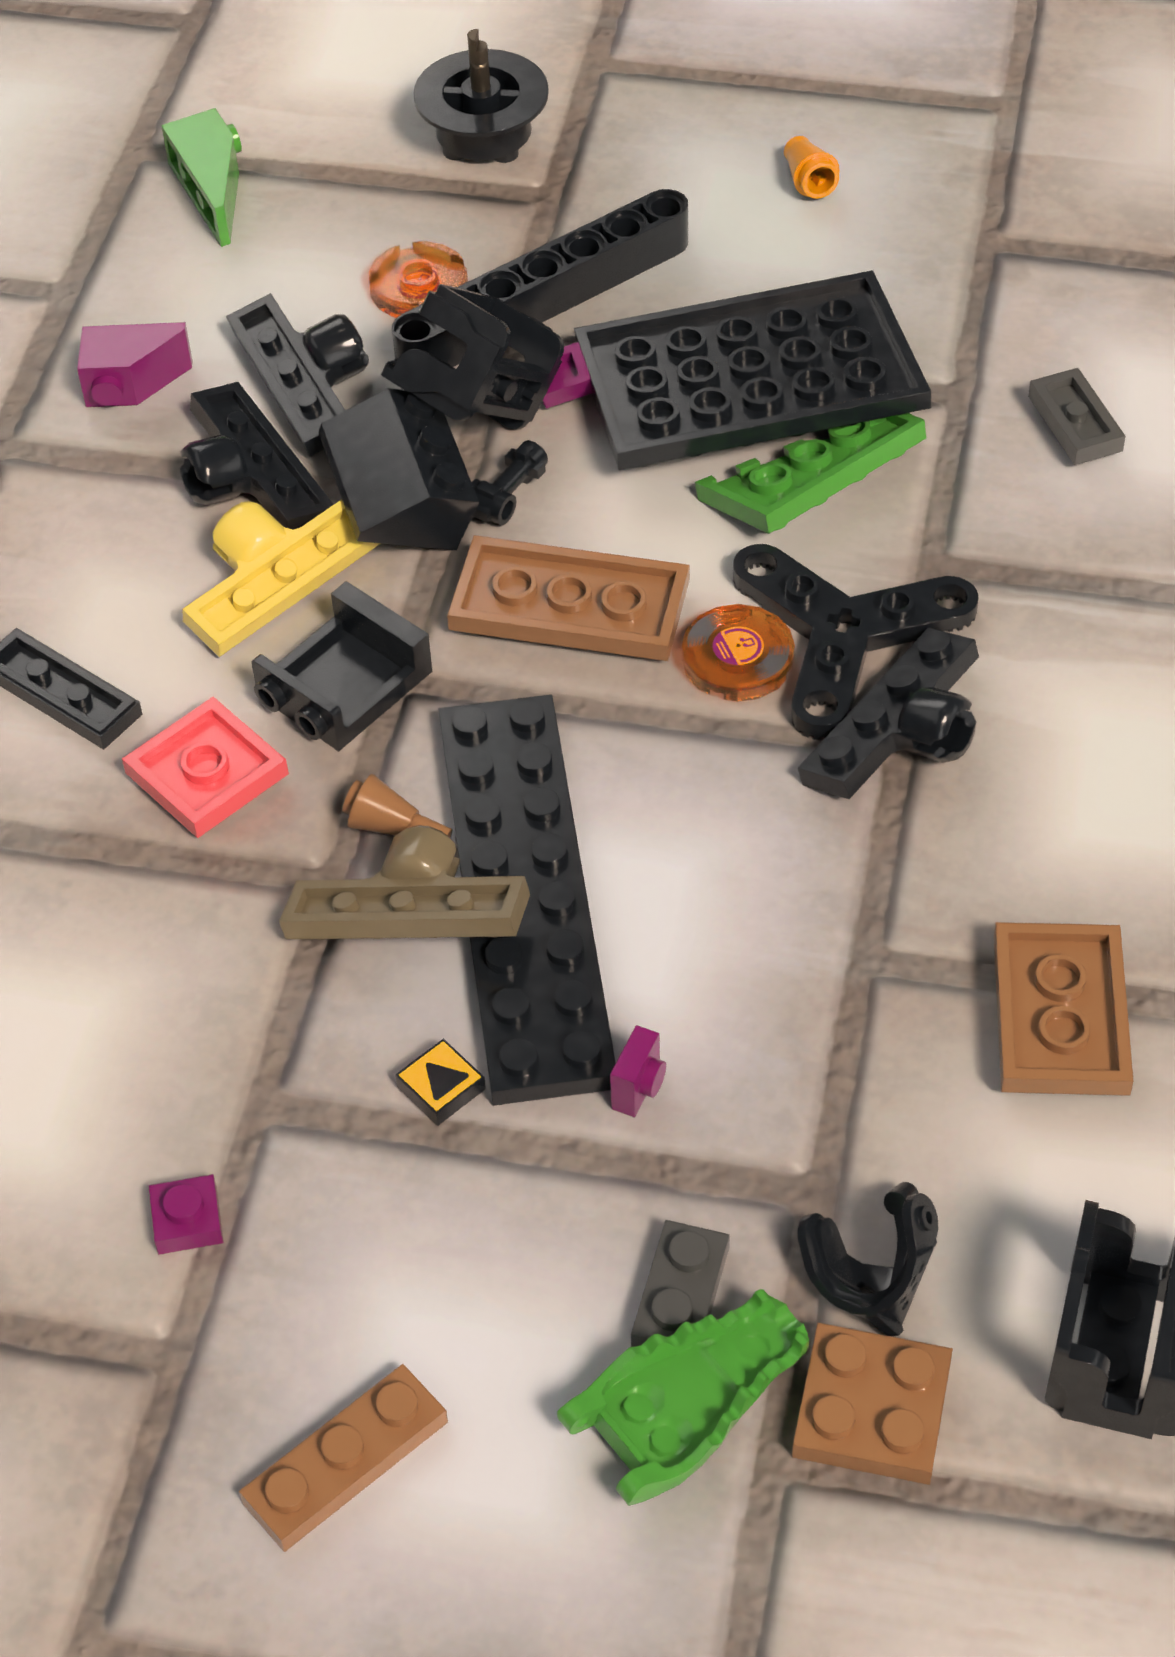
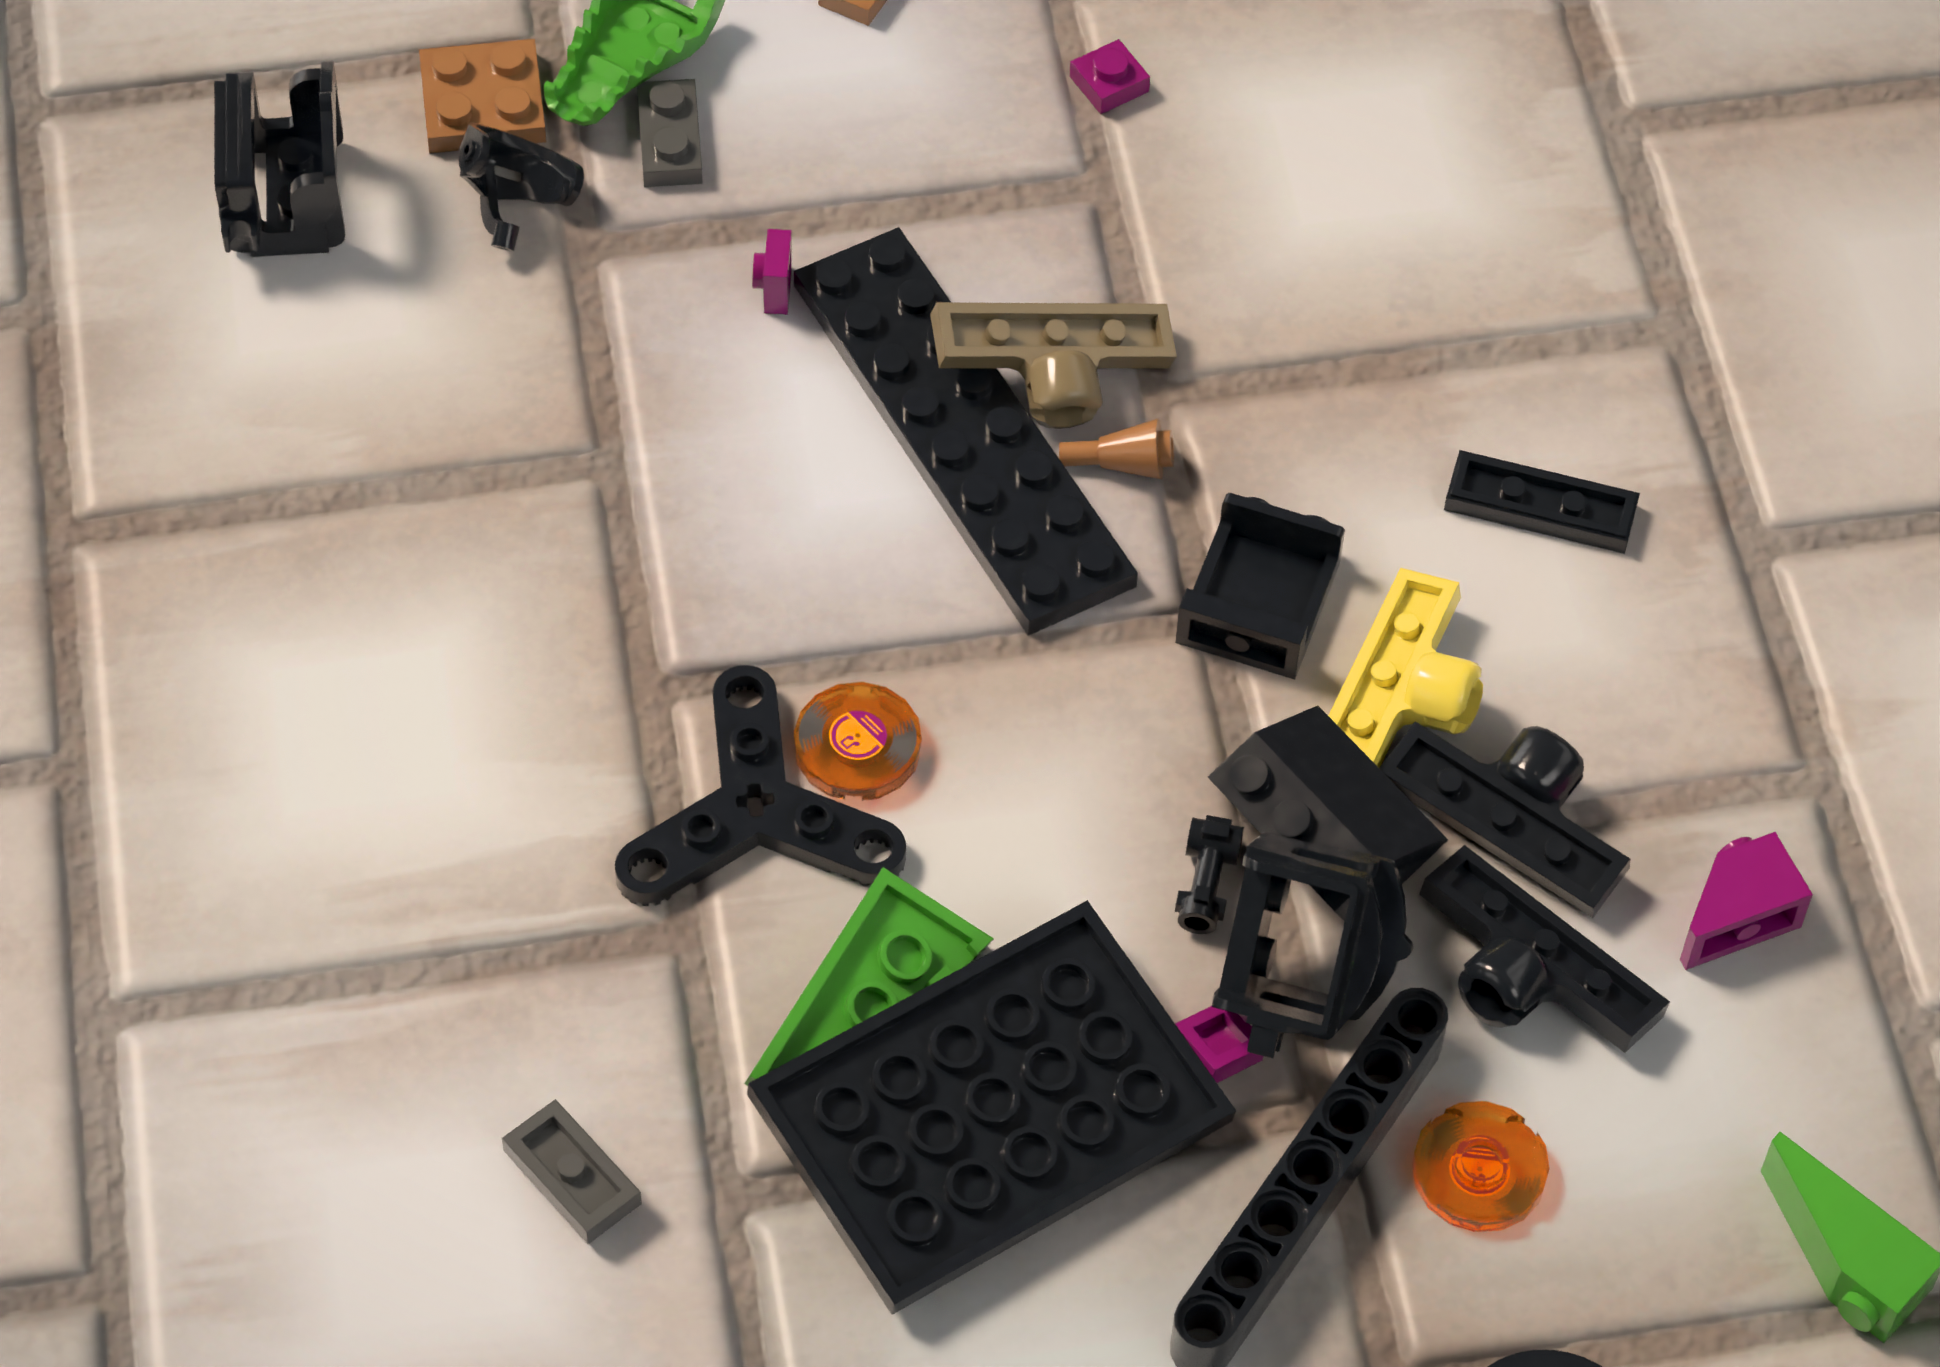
camera: 155 degrees right, 5 degrees up
(205, 767) = (1334, 446): coral plate -> none
(440, 1082) = (951, 234): tile -> none
(569, 597) = (1065, 742): medium nougat plate -> none
(901, 712) = (654, 702): black plate -> none
(1062, 1009) = (407, 442): medium nougat plate -> none

